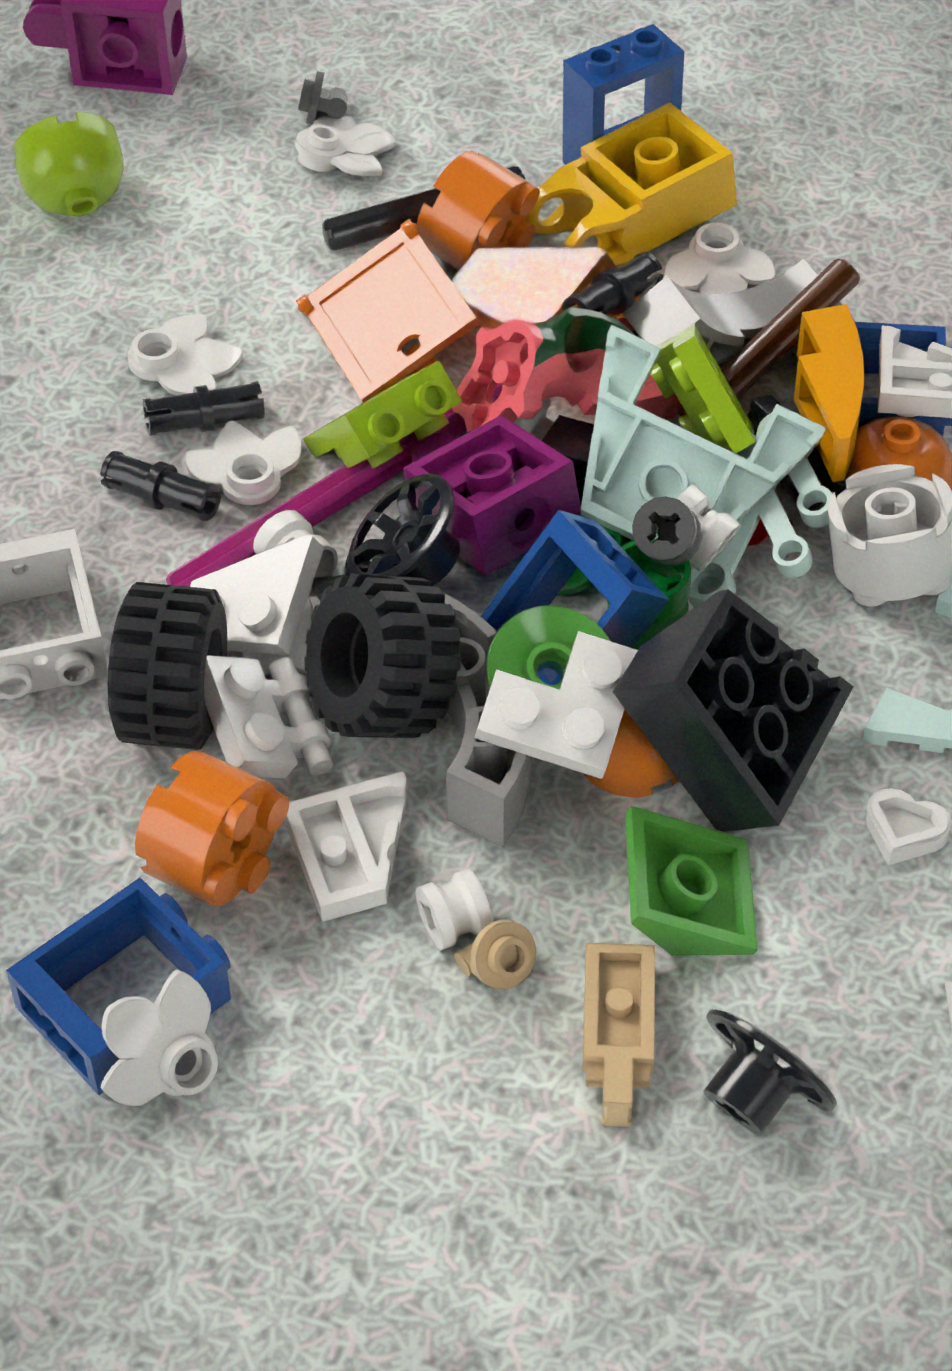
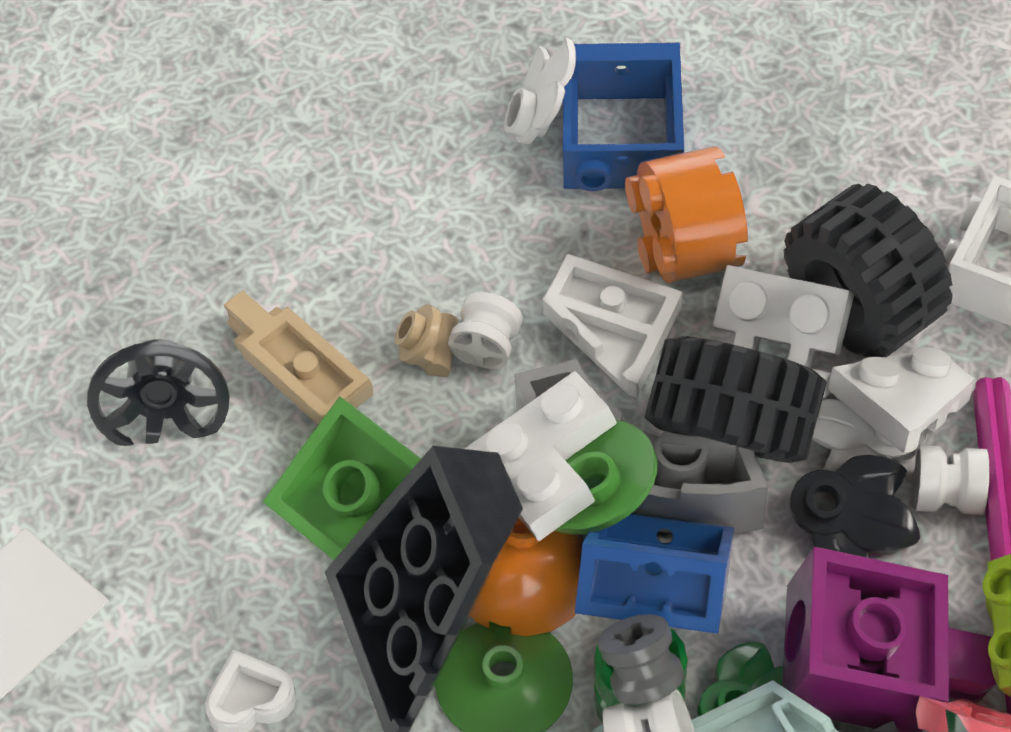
camera: 135 degrees right, 5 degrees up
(414, 541) = (864, 529): black wheel -> none

